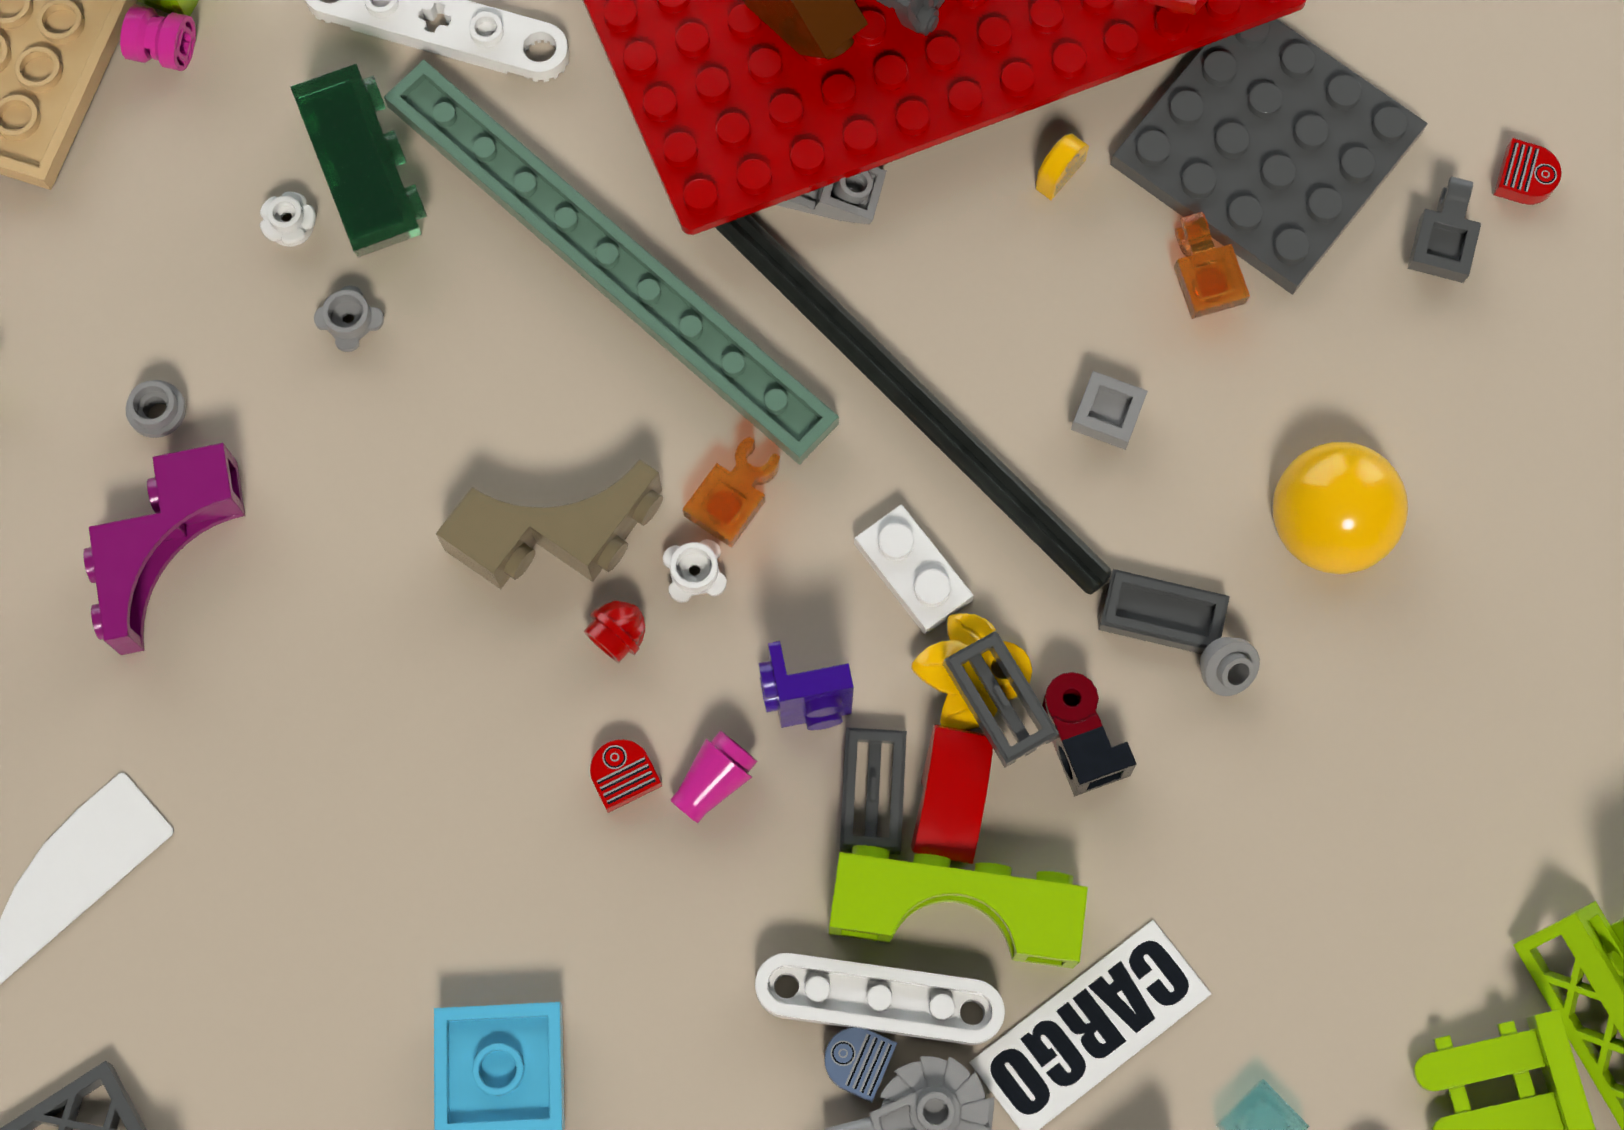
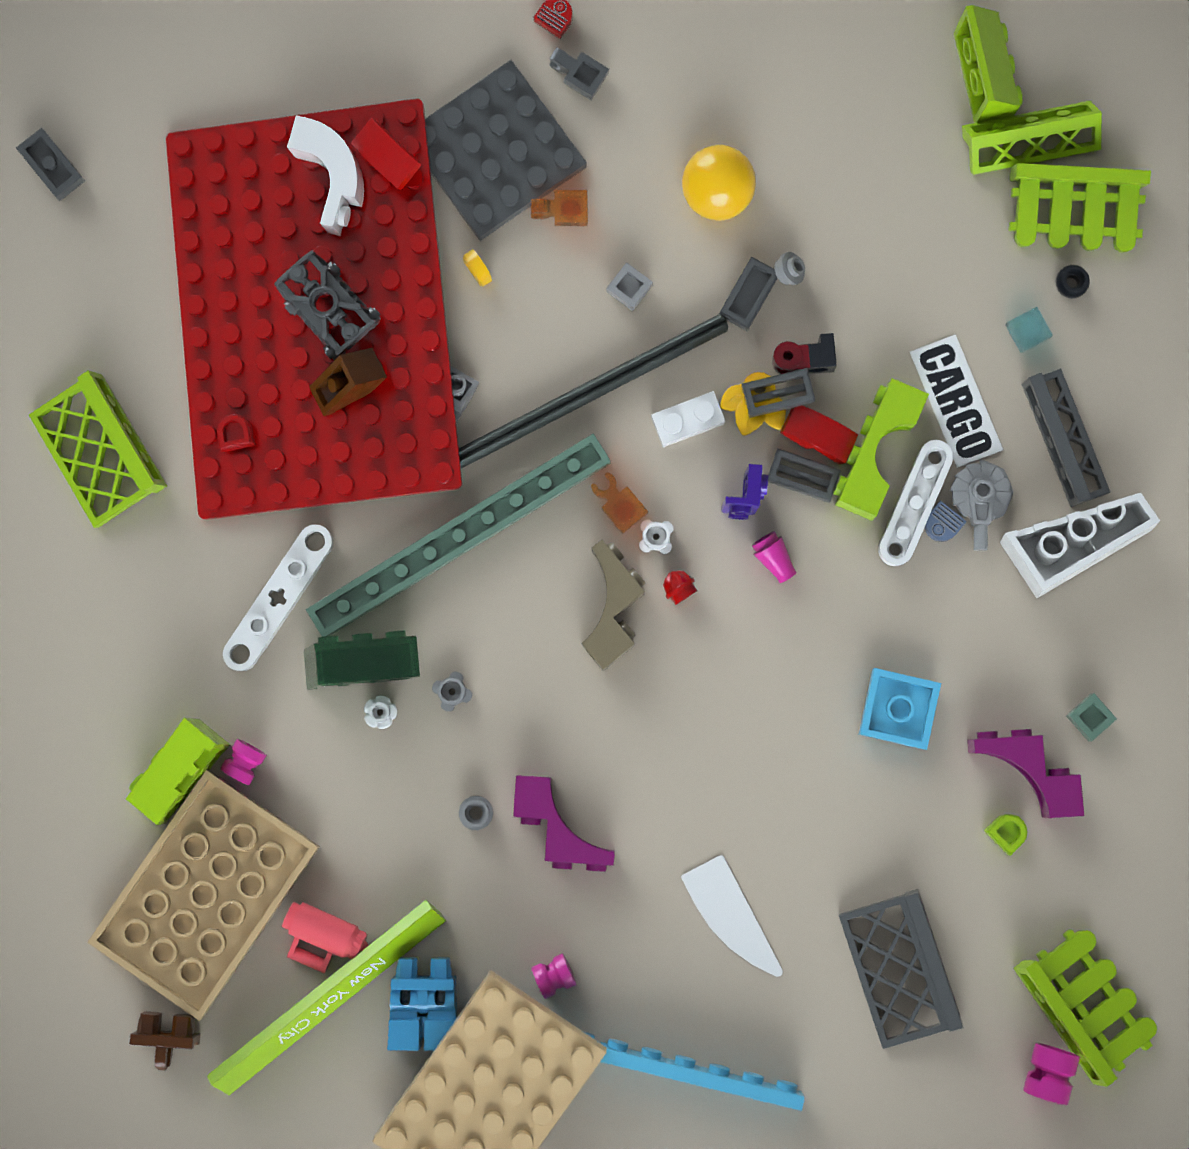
camera: 70 degrees left, 10 degrees up
(622, 773) = (758, 605): red tile -> none

